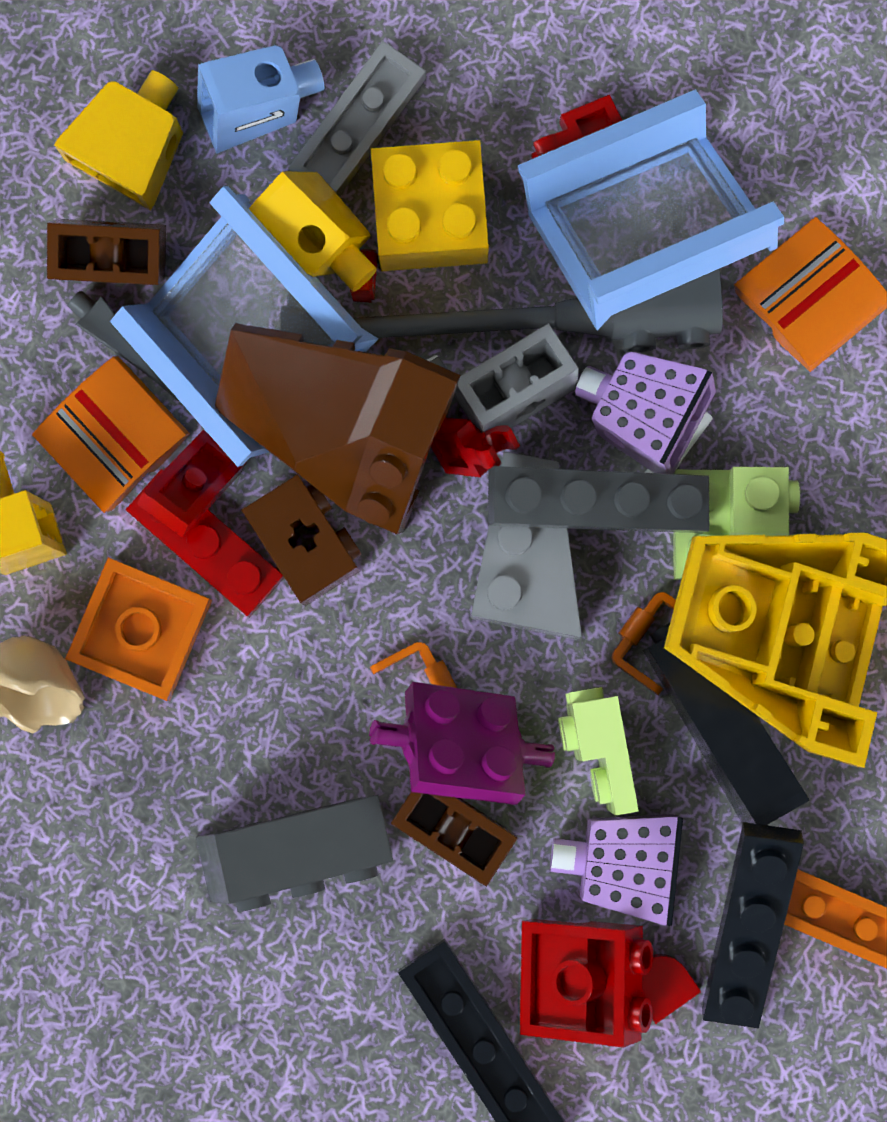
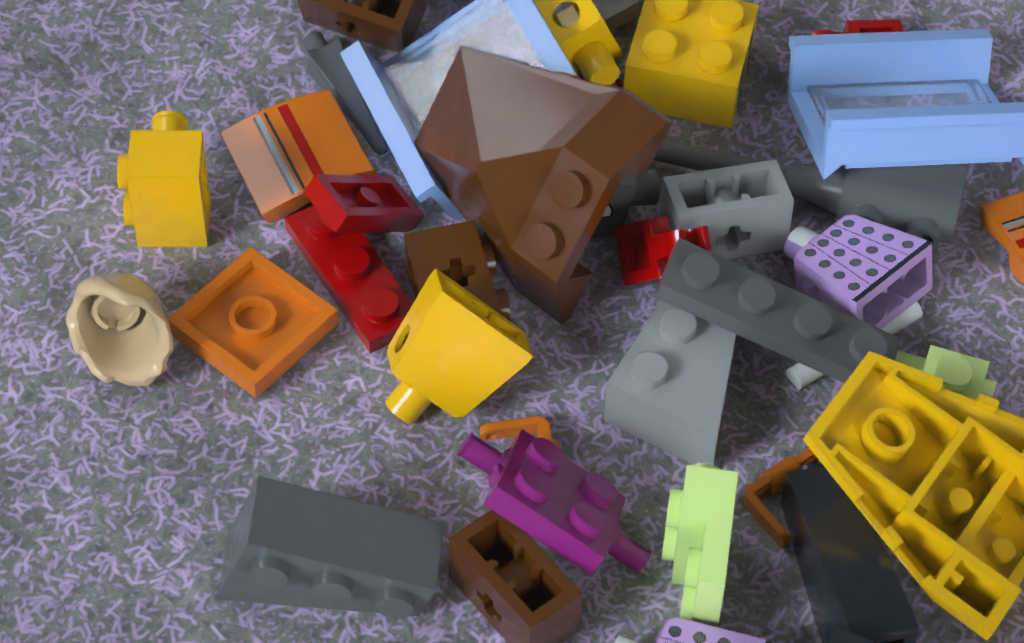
camera: 10 degrees right, 30 degrees down
(328, 621) = (451, 351): none -> yellow torso

